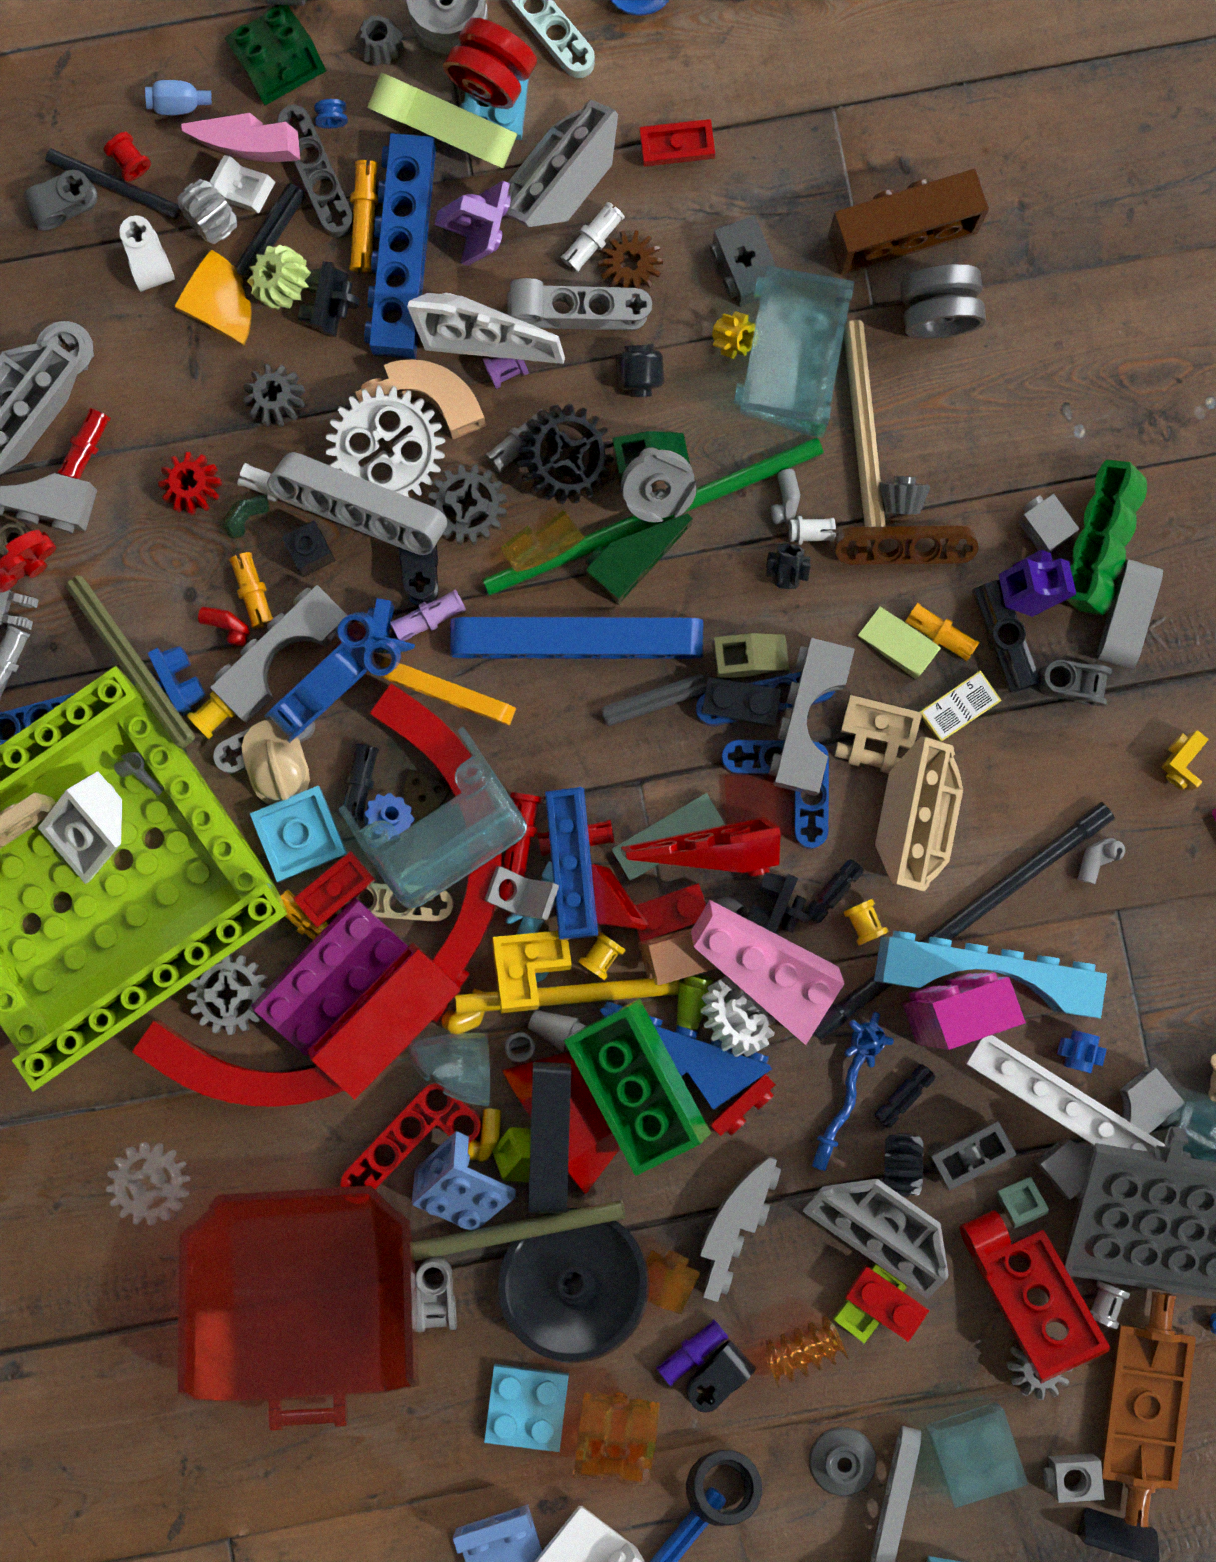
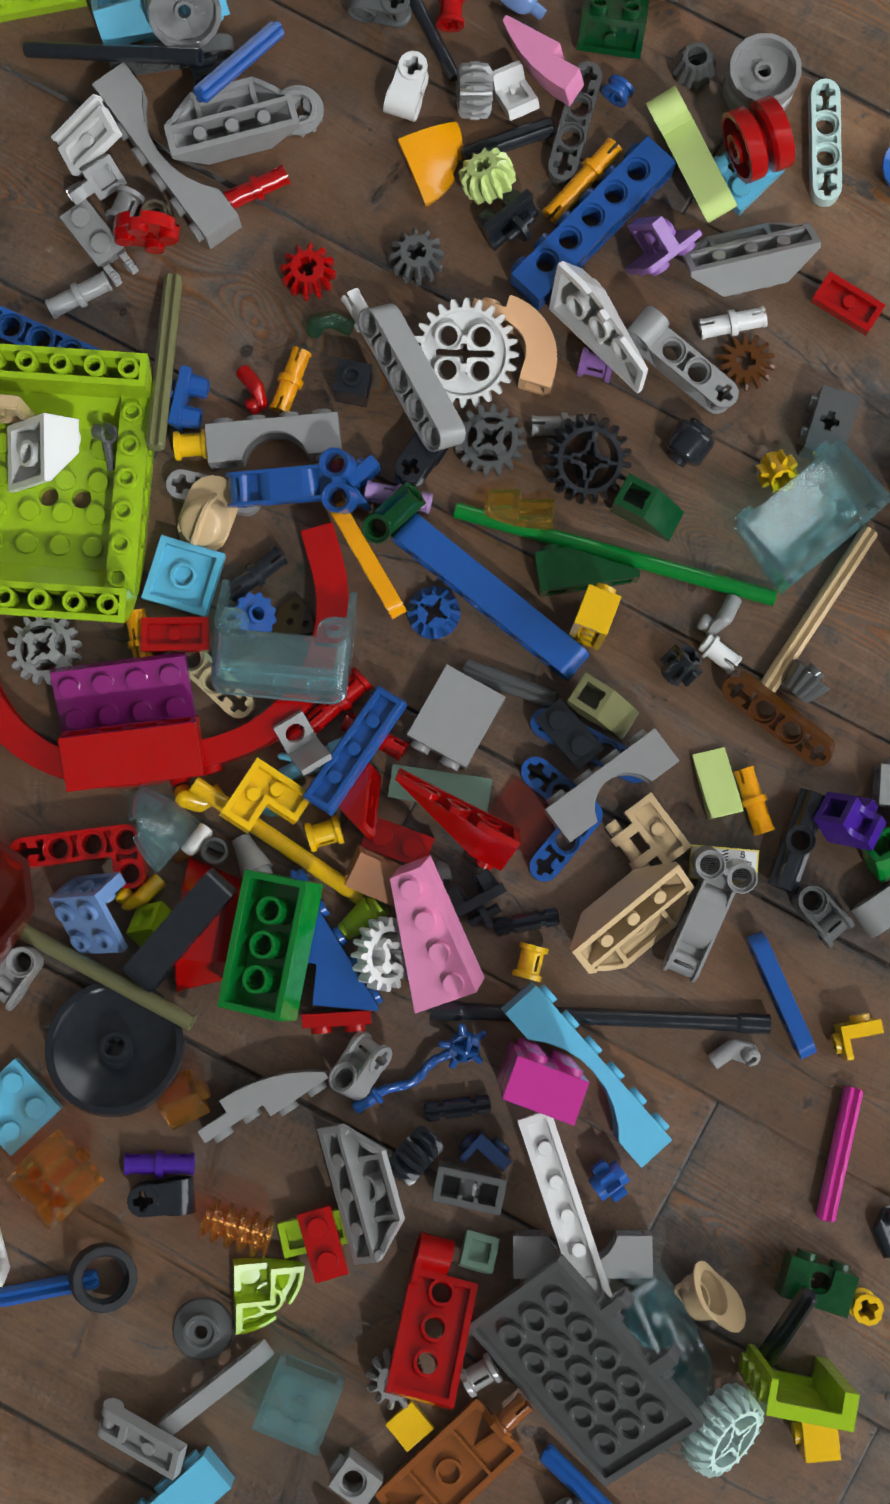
camera: 40 degrees right, 0 degrees up
(437, 632) = (393, 512): none -> dark green piece
(497, 1055) = (193, 843): none -> white arm
(528, 704) = (438, 626): none -> blue gear
(633, 766) = (455, 718): none -> light grey panel
(655, 466) = (642, 516): light grey plate -> none
(683, 583) = (595, 615): none -> yellow brick
(793, 1127) = (359, 1065): none -> light grey piece
(866, 1386) = (262, 1289): none -> lime brick
(964, 1105) = (493, 1149): none -> dark blue bracket
(978, 759) = (705, 912): none -> light grey piece
(1083, 1396) = (409, 1425): none -> yellow tile
(1097, 777) = (780, 995): none -> blue beam

